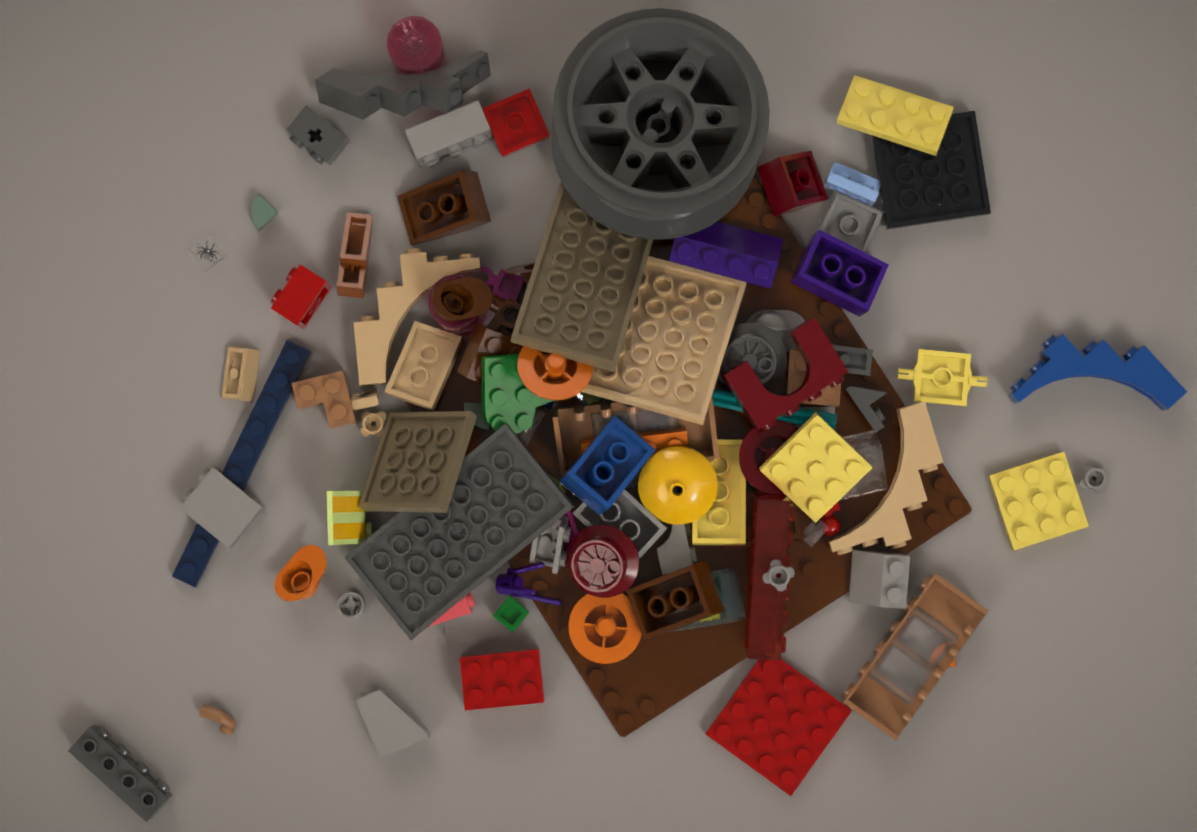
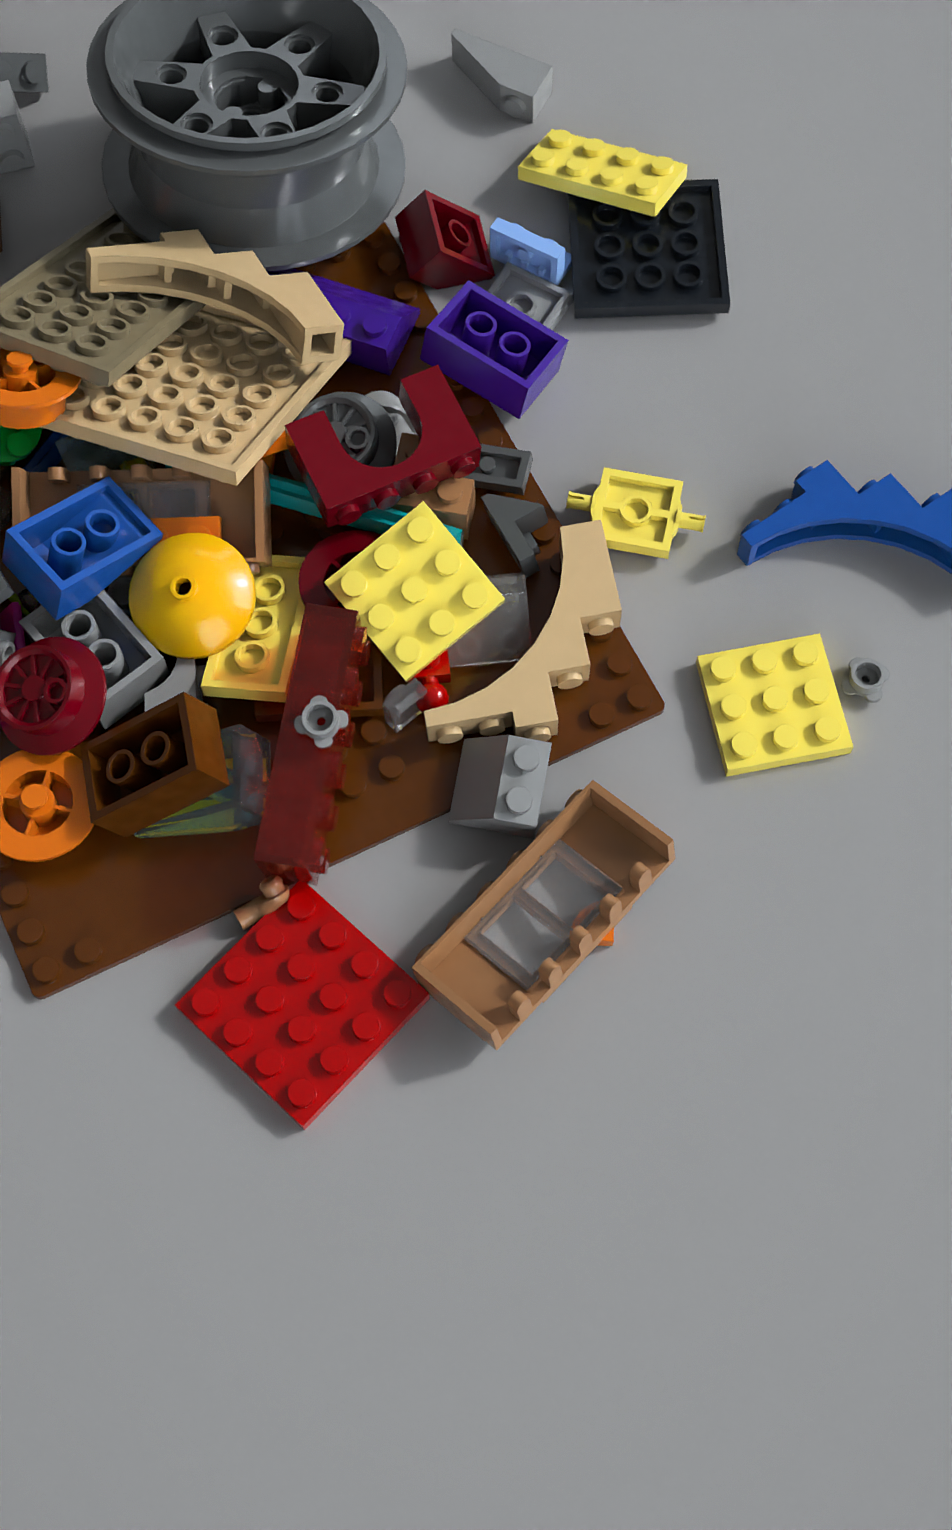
camera: 10 degrees right, 20 degrees down
(516, 122) = (66, 143): red plate -> none
(670, 260) = (237, 282): none -> tan arch
(744, 668) = (273, 896): none -> medium nougat arm
(819, 36) = (506, 77): none -> light grey slope

